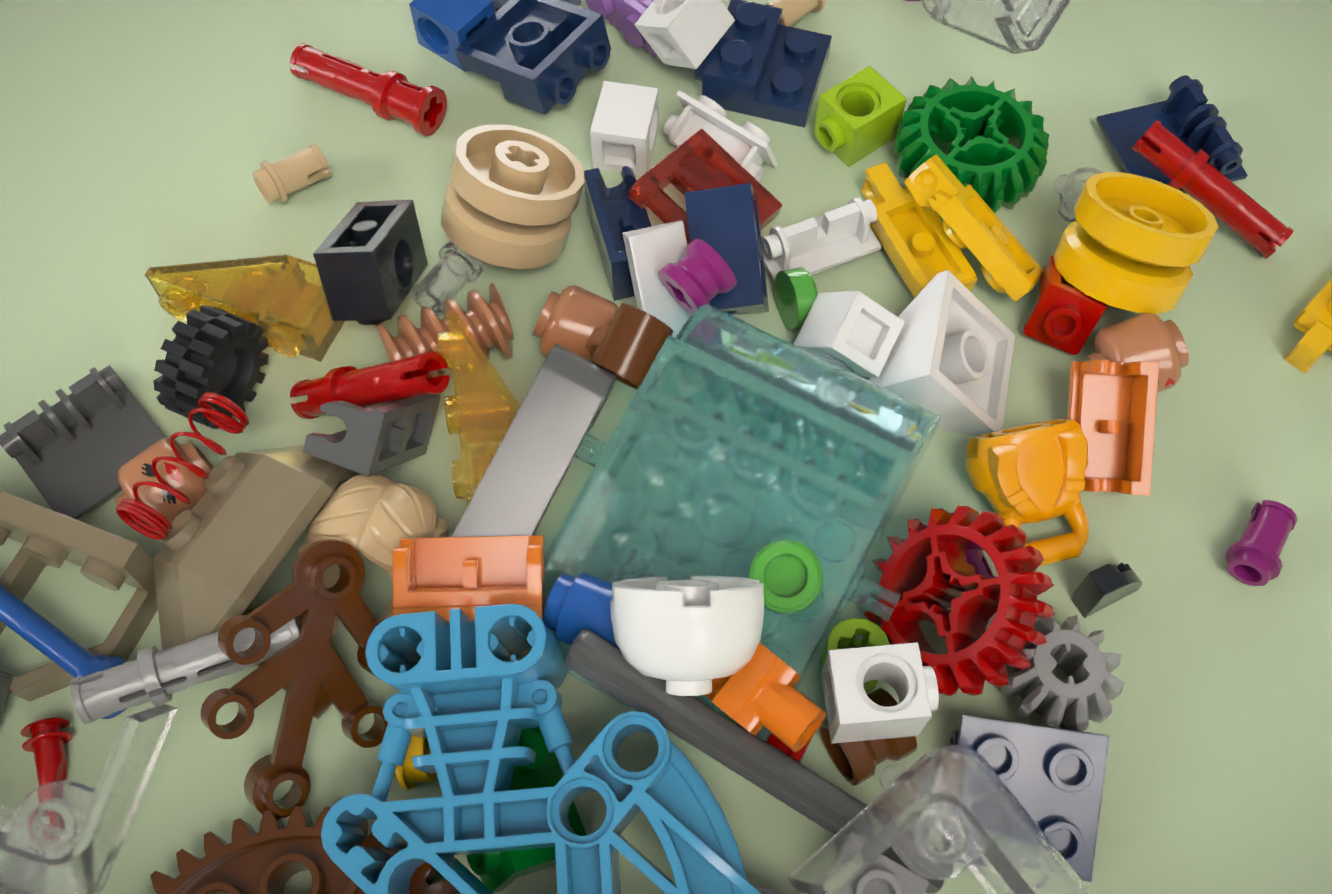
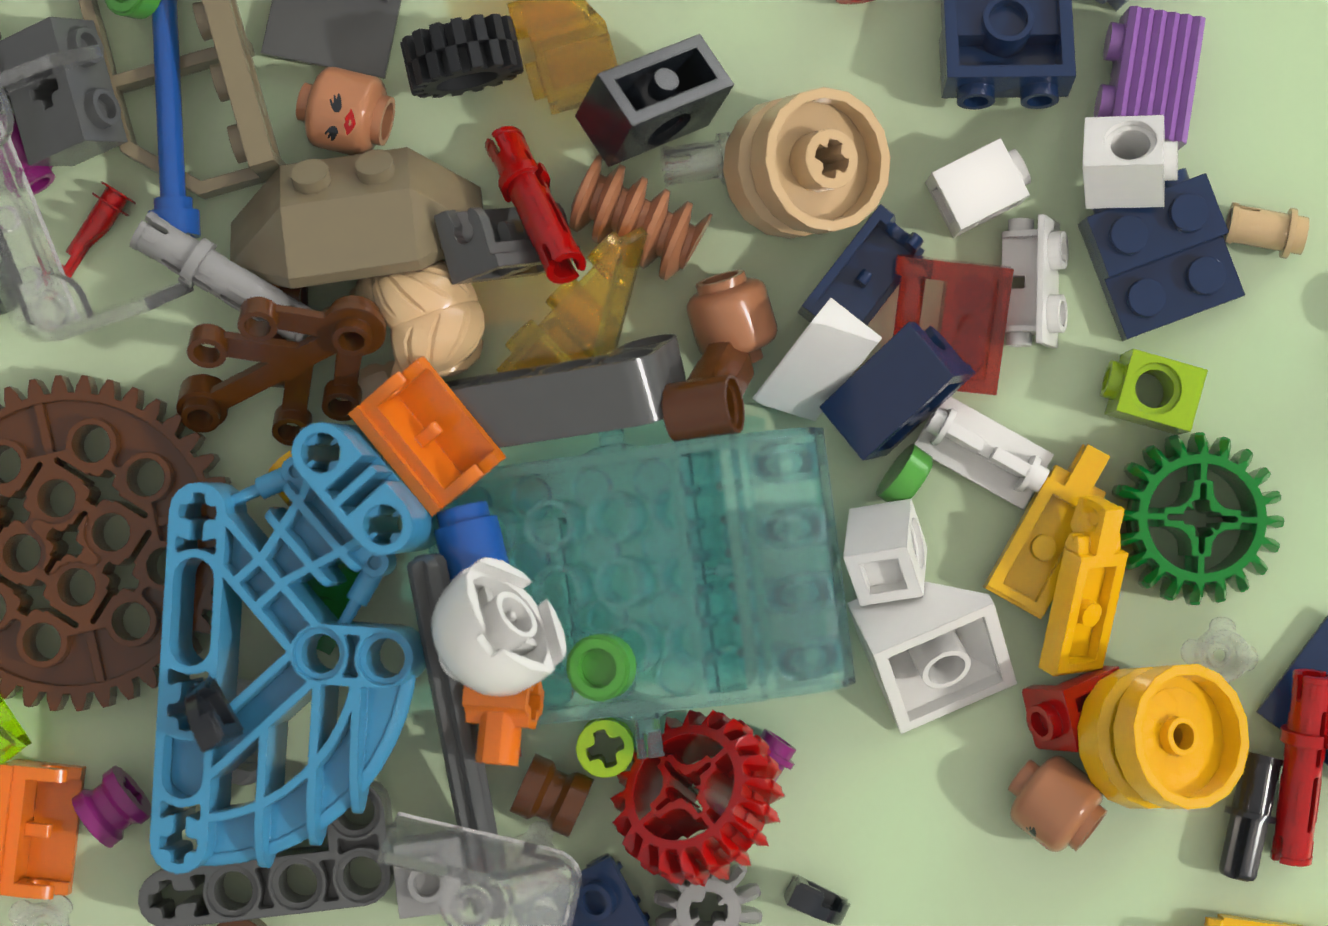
camera: 50 degrees right, 25 degrees up
(130, 508) = (420, 135): red piece -> none
(697, 276) = (829, 397): magenta wheel -> none
(854, 715) = (559, 761): white brick -> none
(1033, 477) = (866, 782): light orange piece -> none
(1117, 417) = (954, 822): orange hinge -> none
(1242, 259) = (1250, 817): none -> black axle

